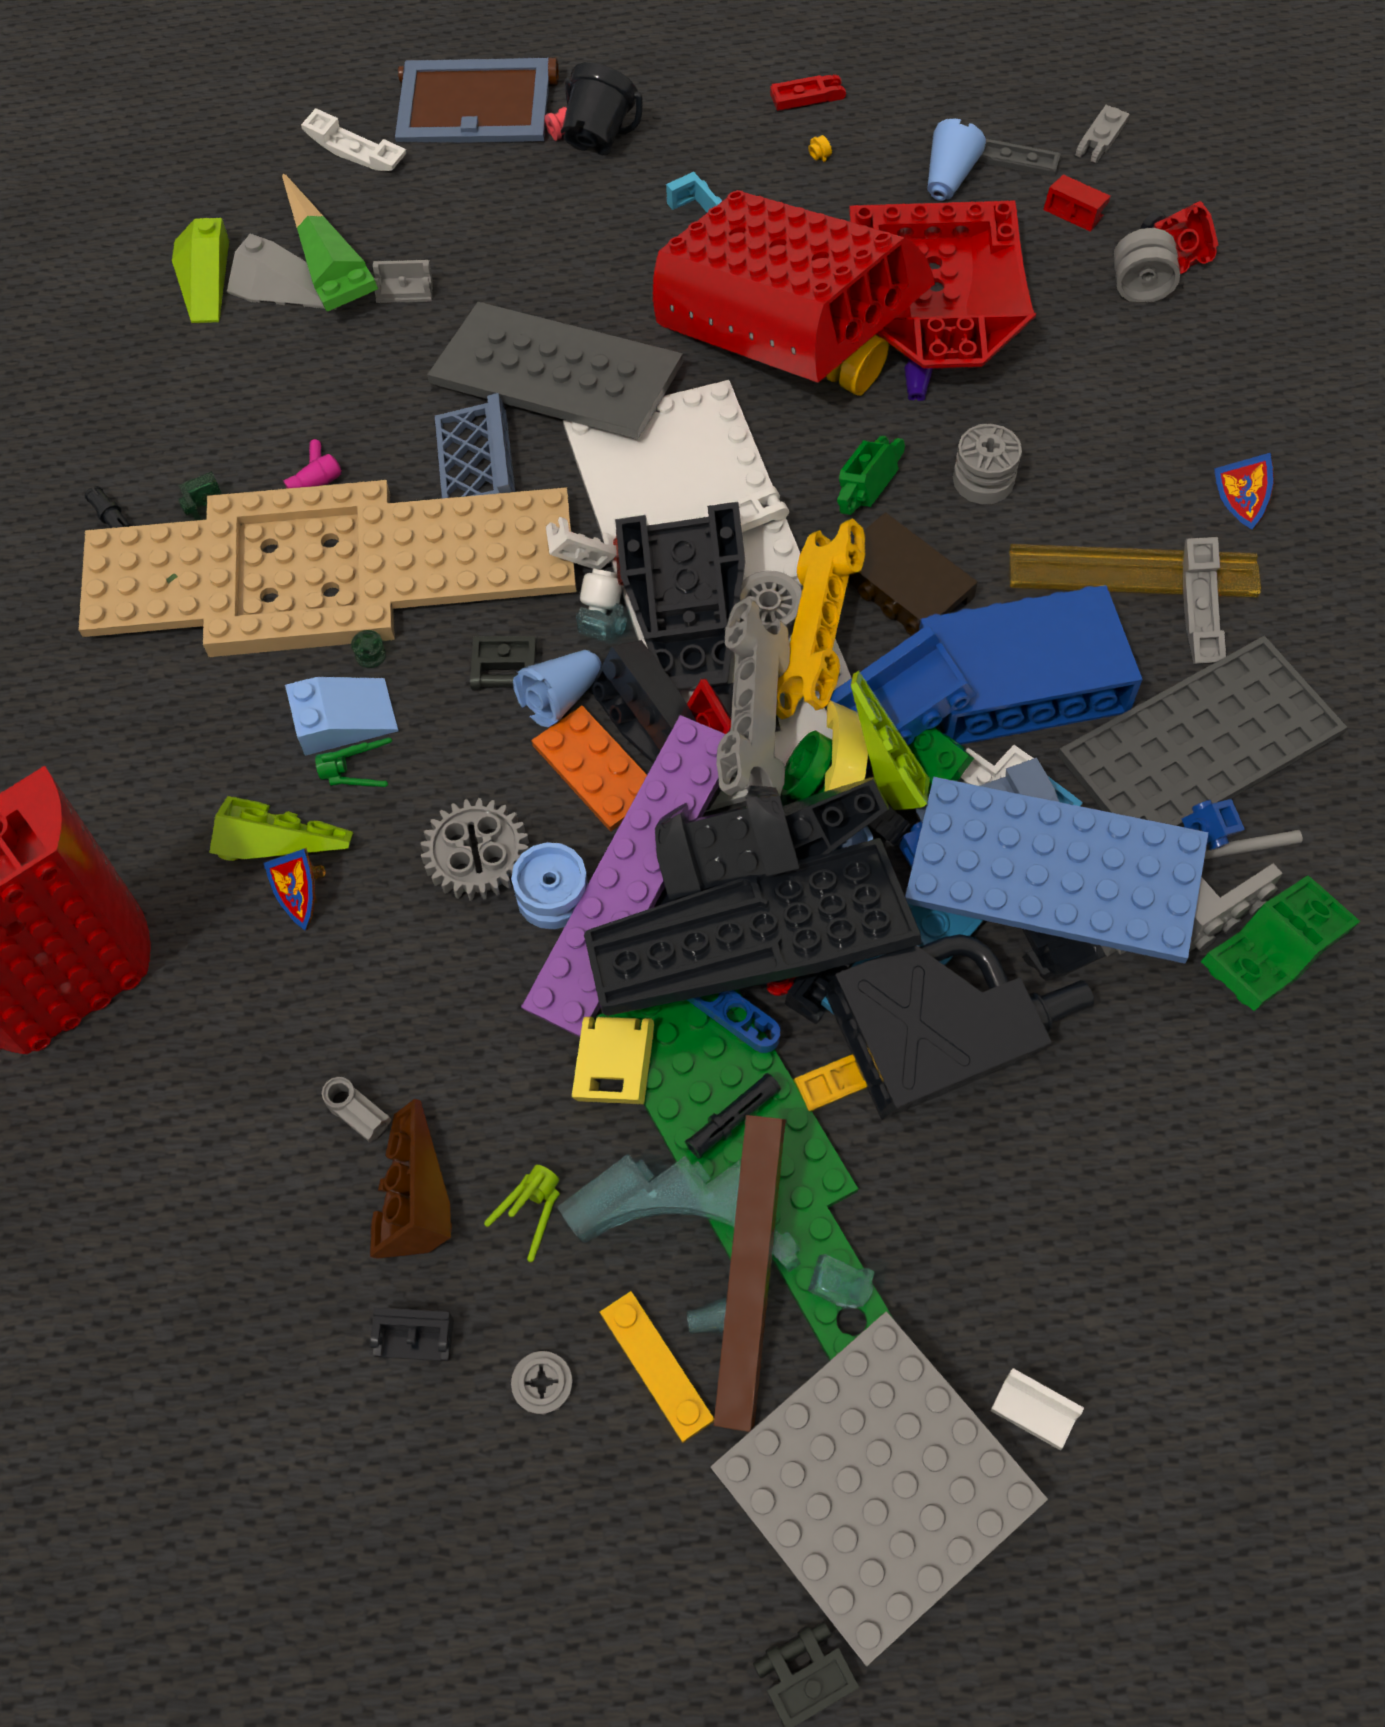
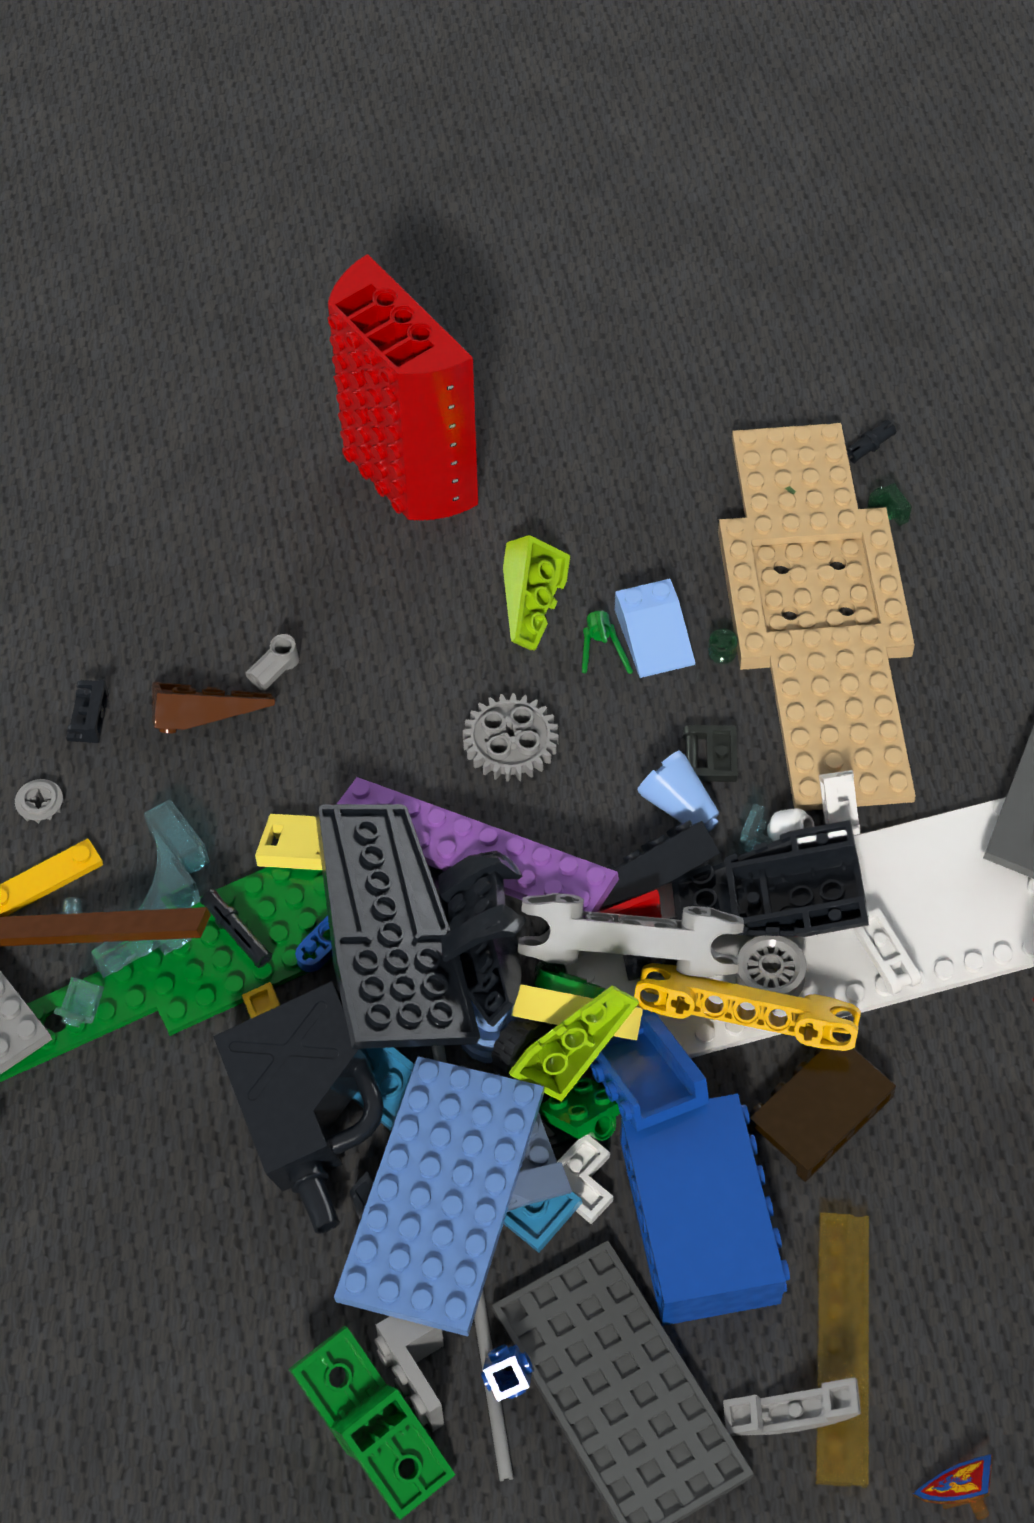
camera: 90 degrees right, 5 degrees down
(294, 885) = (485, 611): shield -> none
(318, 472) = (927, 595): dark pink piece -> none
(497, 444) = (963, 739): sand blue fence -> none
(535, 1186) = (195, 792): lime plant -> none
(548, 884) = (467, 786): light blue wheel -> none
(592, 765) = (604, 825): orange plate -> none
(868, 473) = (956, 1077): green hinge -> none
(986, 463) = (970, 1212): light grey wheel -> none

